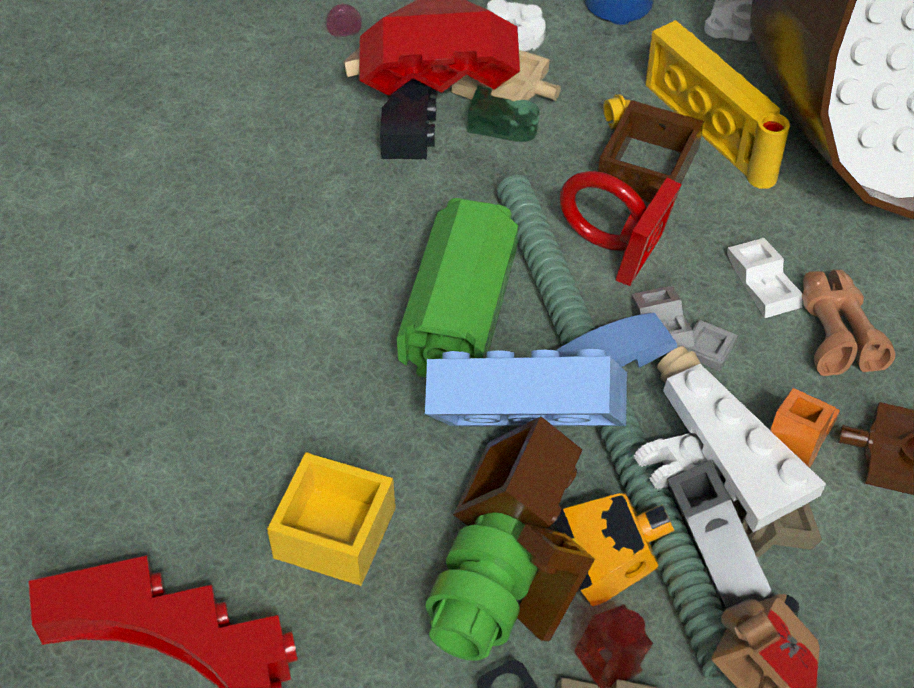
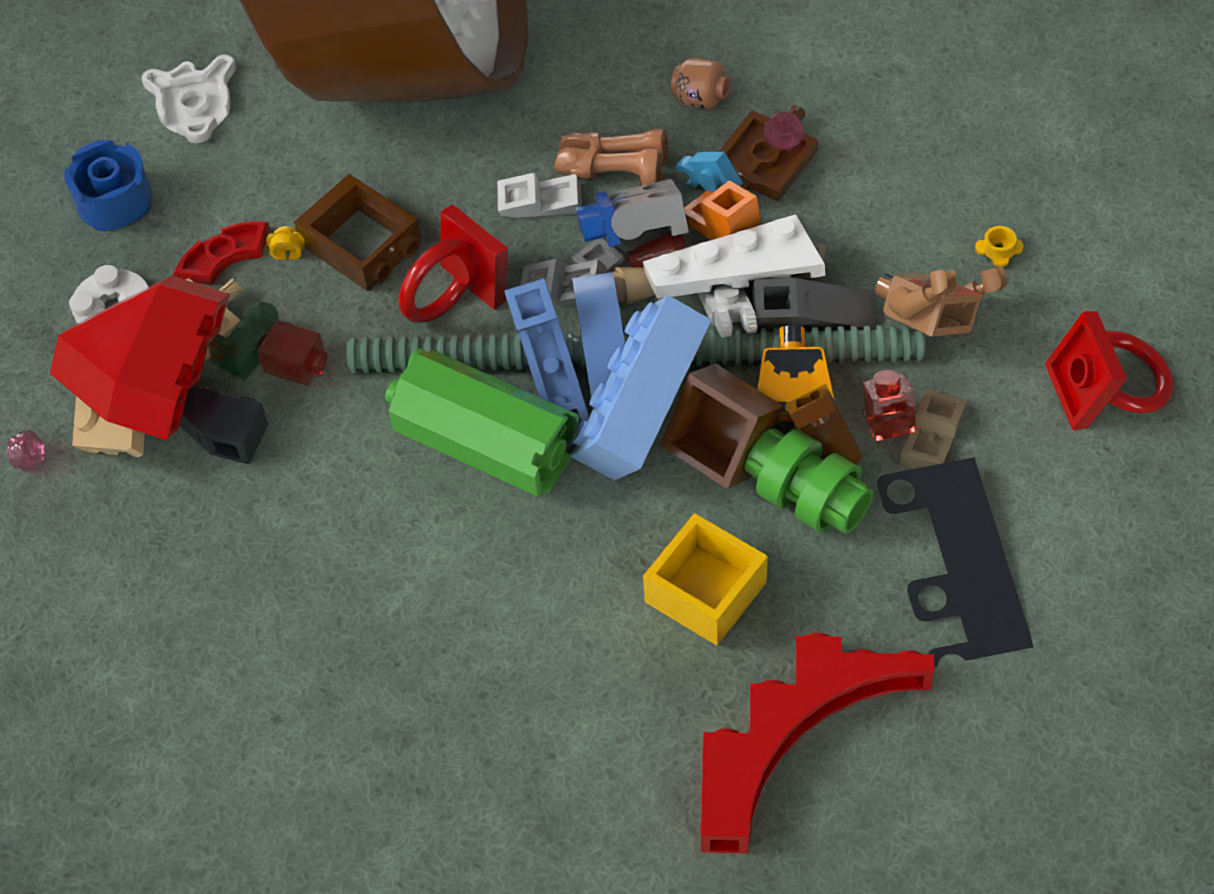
camera: 70 degrees left, 5 degrees up
(497, 146) = (292, 353): none -> clear red brick
(566, 310) = (546, 347): none -> medium blue slope
(594, 77) = (234, 243): none -> red tile
(734, 112) = (319, 154): yellow hinge -> none
(740, 385) = (661, 245): none -> clear red cone
(766, 345) = (632, 212): none -> light grey hips
(854, 401) = (708, 170): none -> dark azure plate

